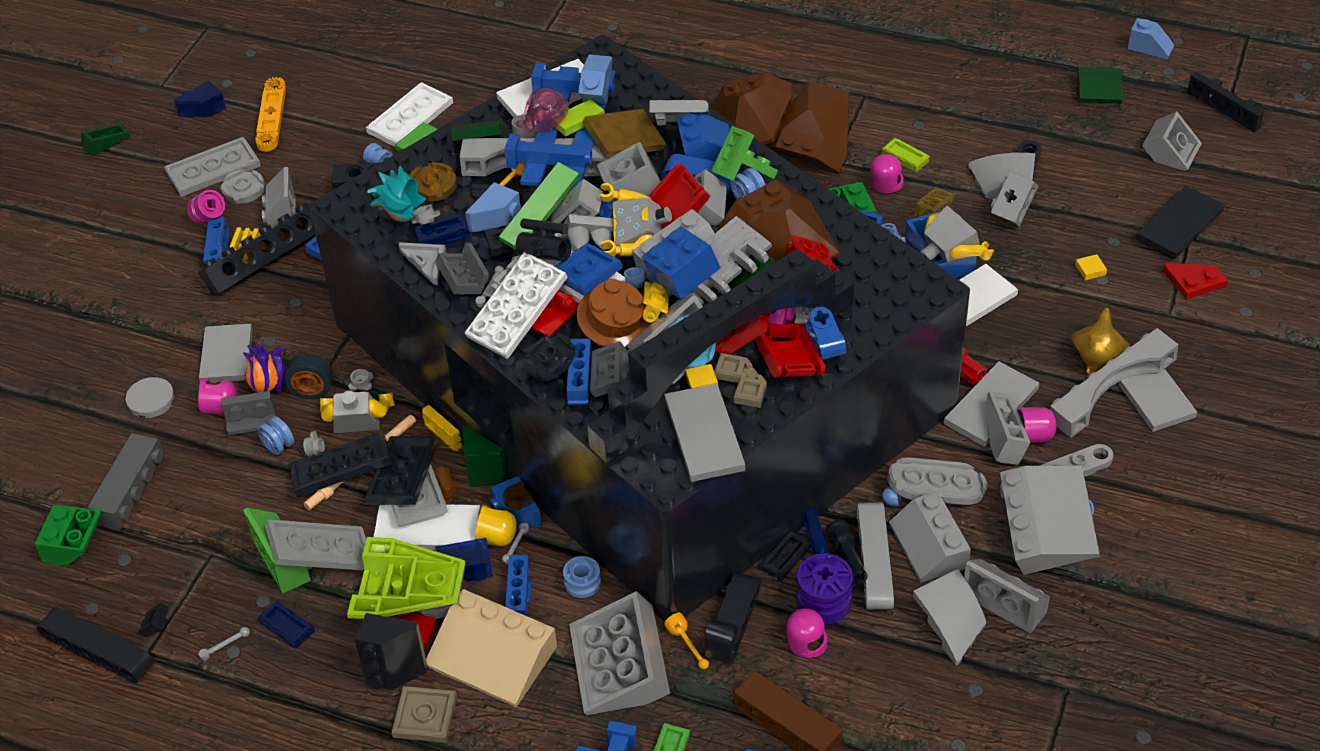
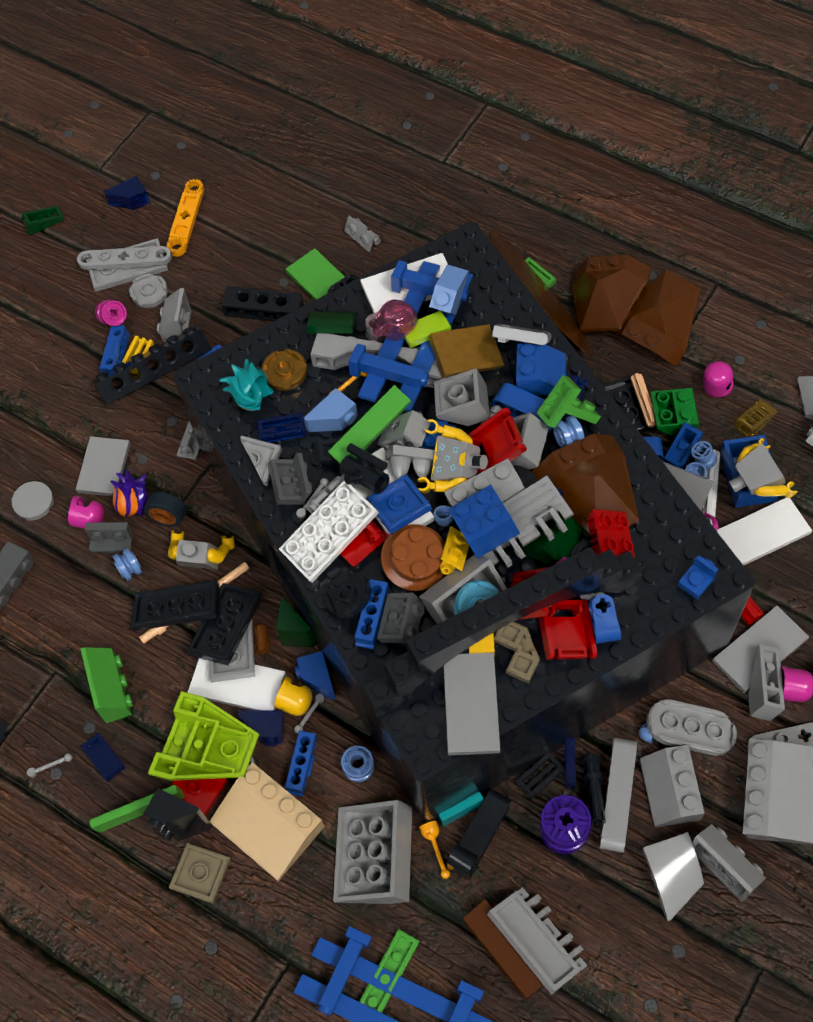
camera: 15 degrees right, 15 degrees up
(198, 159) = (135, 258): none -> light grey piece
(313, 444) = (157, 579): light grey plate -> none
(316, 544) = (137, 690): light grey tile -> none
(323, 315) = (189, 446): none -> light grey hinge
(324, 669) = (128, 811): none -> bright green tile
(360, 380) = (210, 512): light grey plate -> none
(375, 154) = (266, 278): medium blue wheel -> none
(417, 106) = (303, 236): white tile -> none
(424, 214) = (269, 409): light grey plate -> none
(441, 428) = (268, 582): yellow tile -> none
(465, 99) = (359, 233): none -> light grey hinge
(517, 497) = (315, 674): dark brown tile -> none
(706, 598) = (461, 809): none -> teal tile
(805, 627) = (540, 864): dark pink helmet -> none
(820, 697) = (537, 940): none -> light grey hinge
(908, 155) = (741, 357): lime tile -> none
(912, 287) = (698, 577): none -> blue bracket

